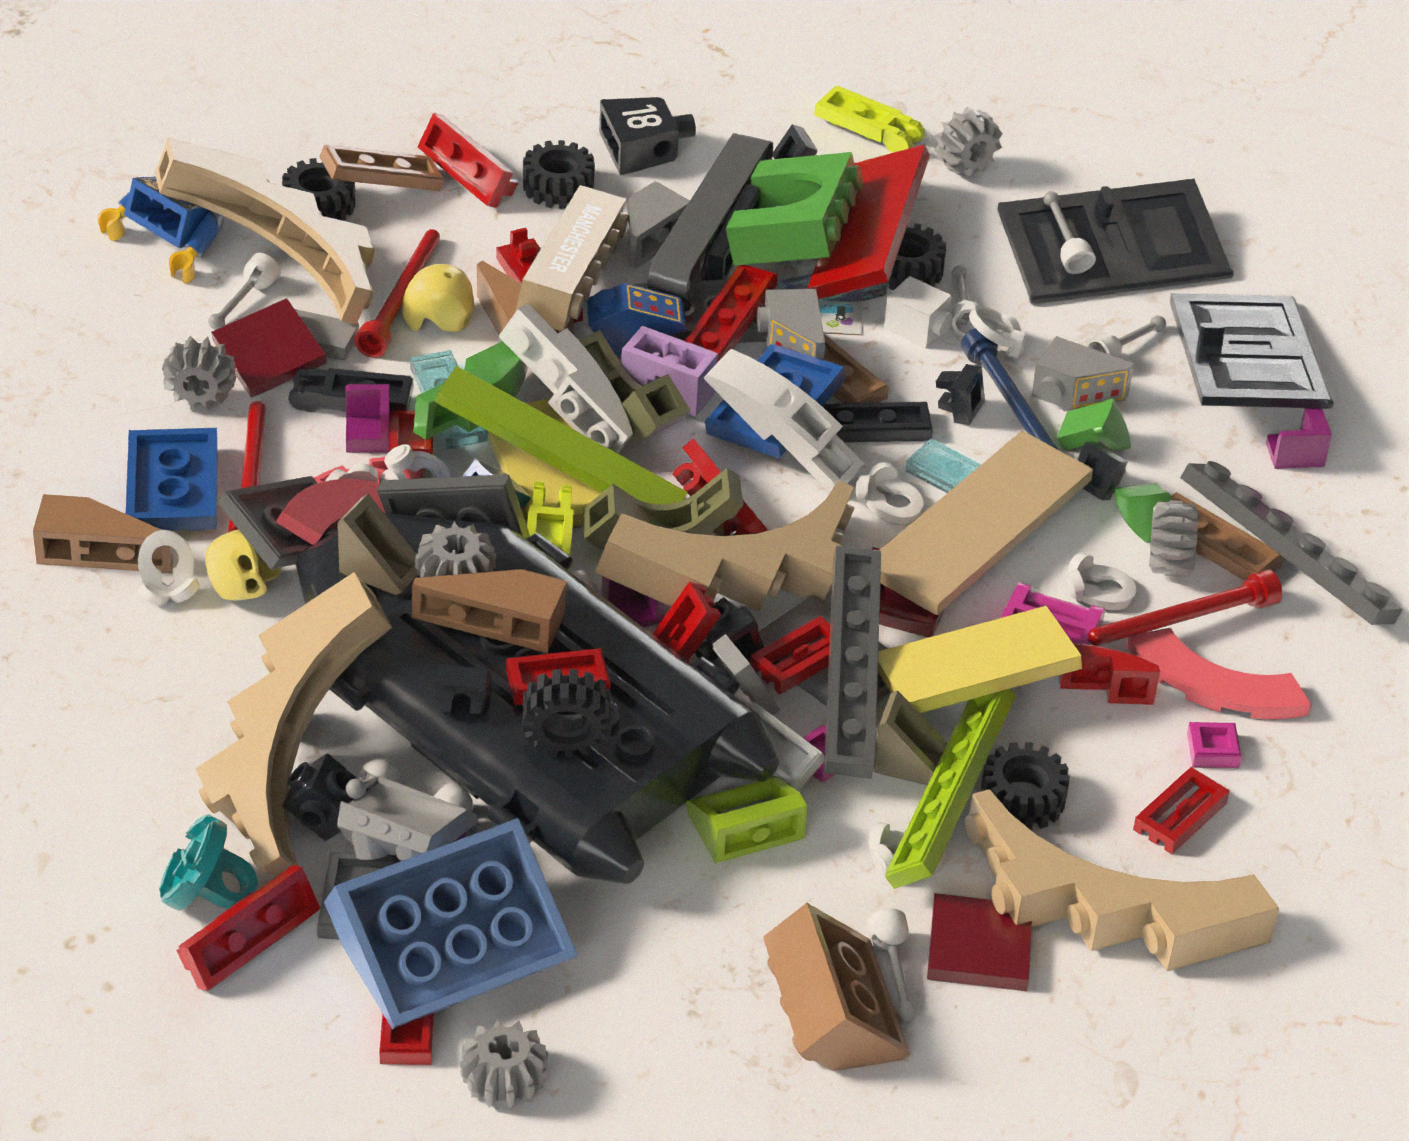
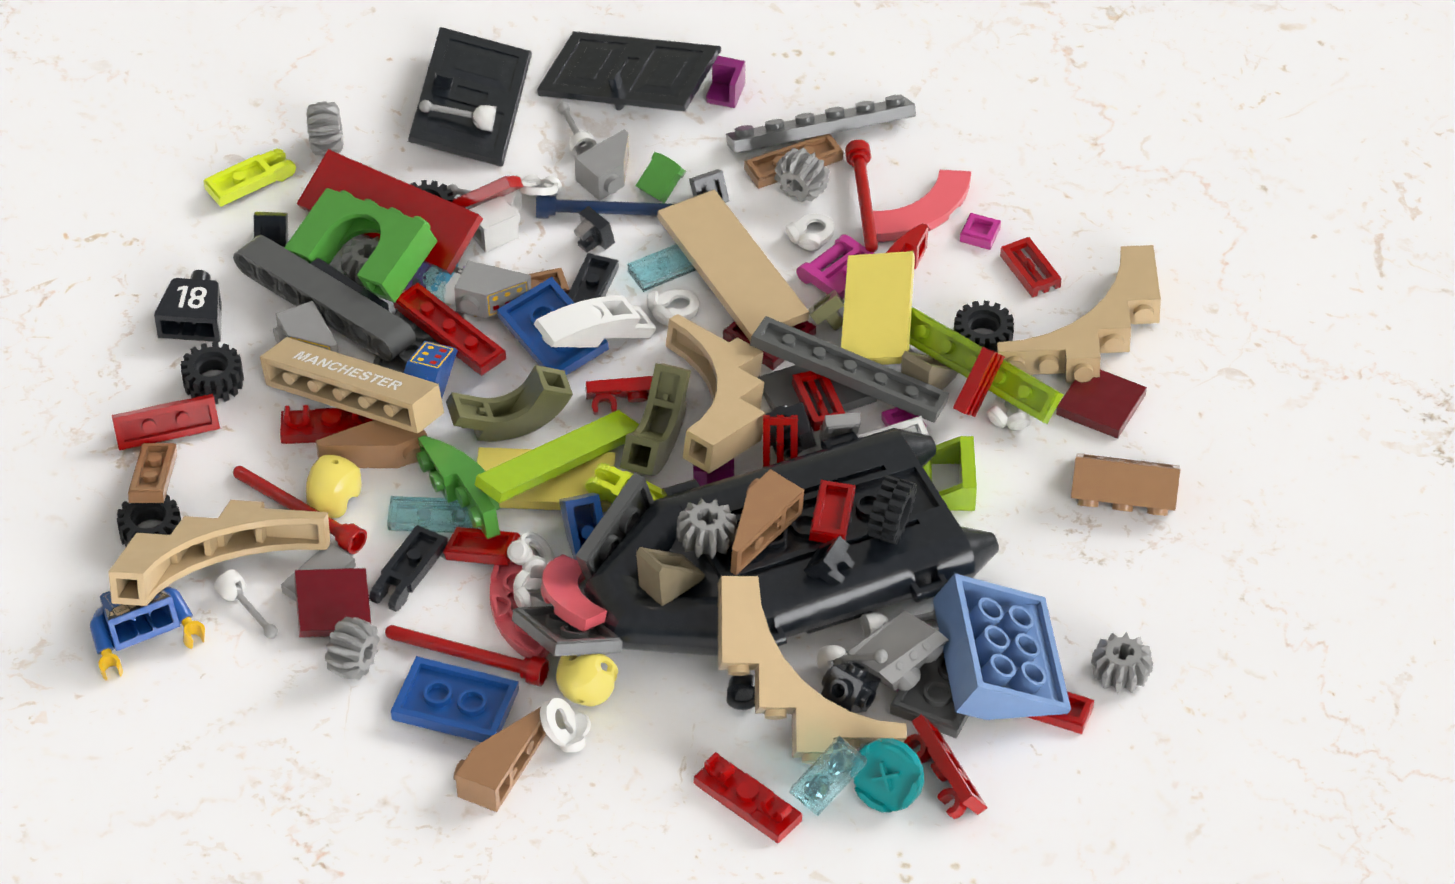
camera: 65 degrees left, 5 degrees up
(134, 761) = (747, 798): none -> red plate
(170, 805) = (828, 775): none -> clear light blue tile
(367, 418) = (452, 563): magenta panel -> none
(578, 383) = (493, 425): white slope -> none
(655, 354) = (496, 370): lavender brick -> none
(888, 933) = (1084, 440): hinge -> none
(911, 792) = (978, 382): none -> red tile
(949, 282) = (489, 191): none -> tile
(952, 618) = (827, 310): none -> olive tile
(1137, 506) = (753, 179): bright green tile -> none

